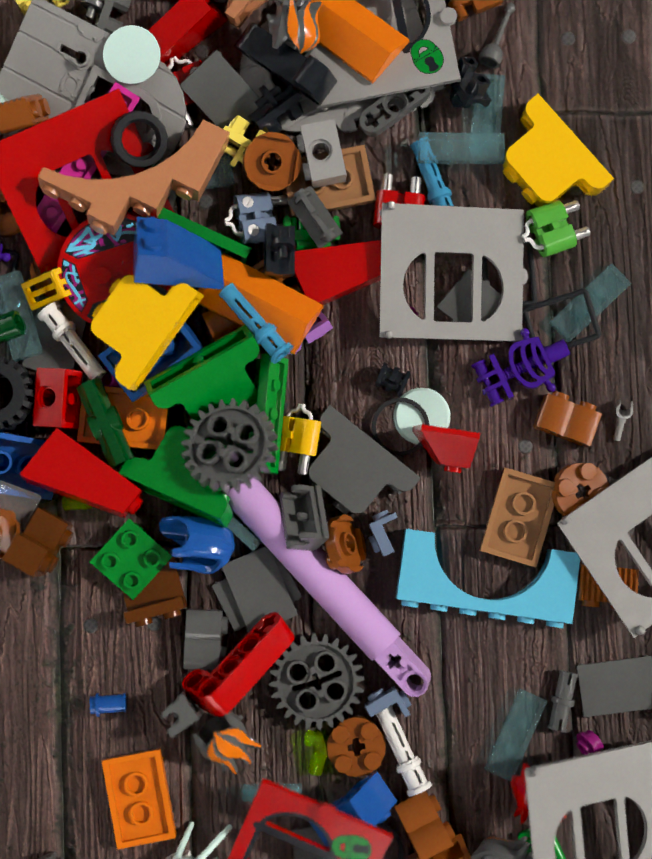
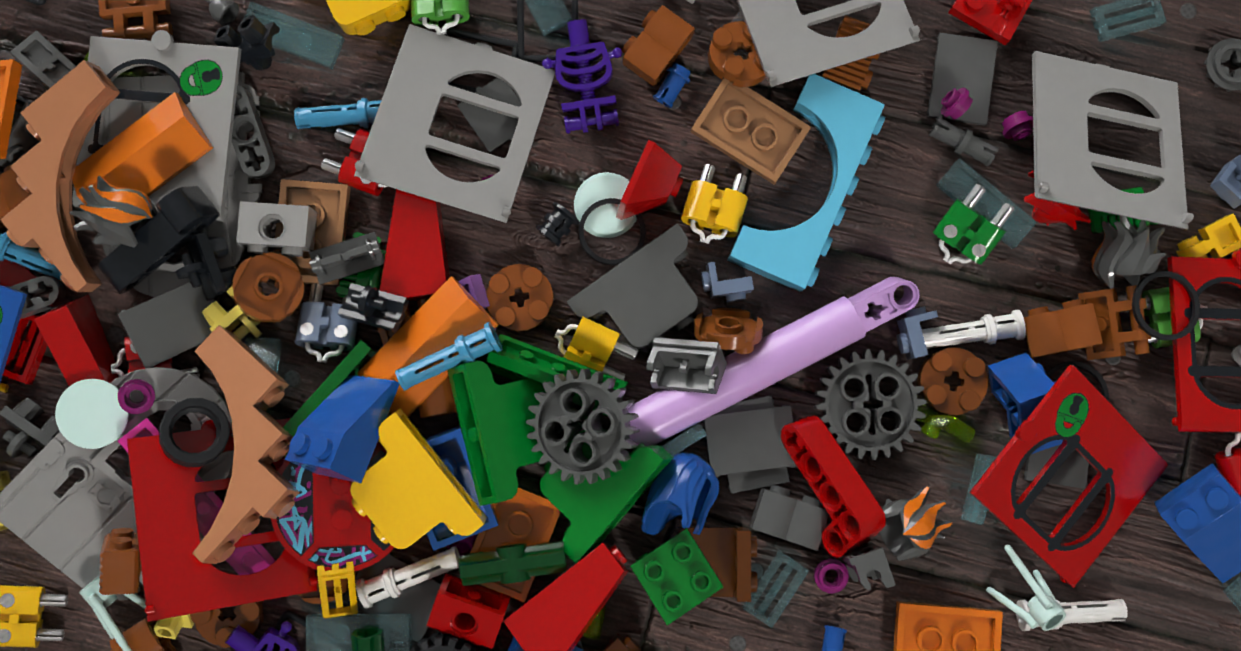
camera: 75 degrees left, 0 degrees up
(145, 85) = (136, 407): none -> magenta plate
(147, 633) = (787, 596): none -> clear light blue tile
(164, 696) = (841, 575): none -> magenta plate
(339, 371) = (535, 308): none -> dark orange plate
(444, 505) = (714, 207): none -> yellow piece
(461, 148) = (318, 72): clear light blue tile -> none
(487, 726) = (969, 230): none -> green piece
(538, 441) = (672, 84): none -> blue pin
(592, 685) = (956, 103): none -> magenta plate

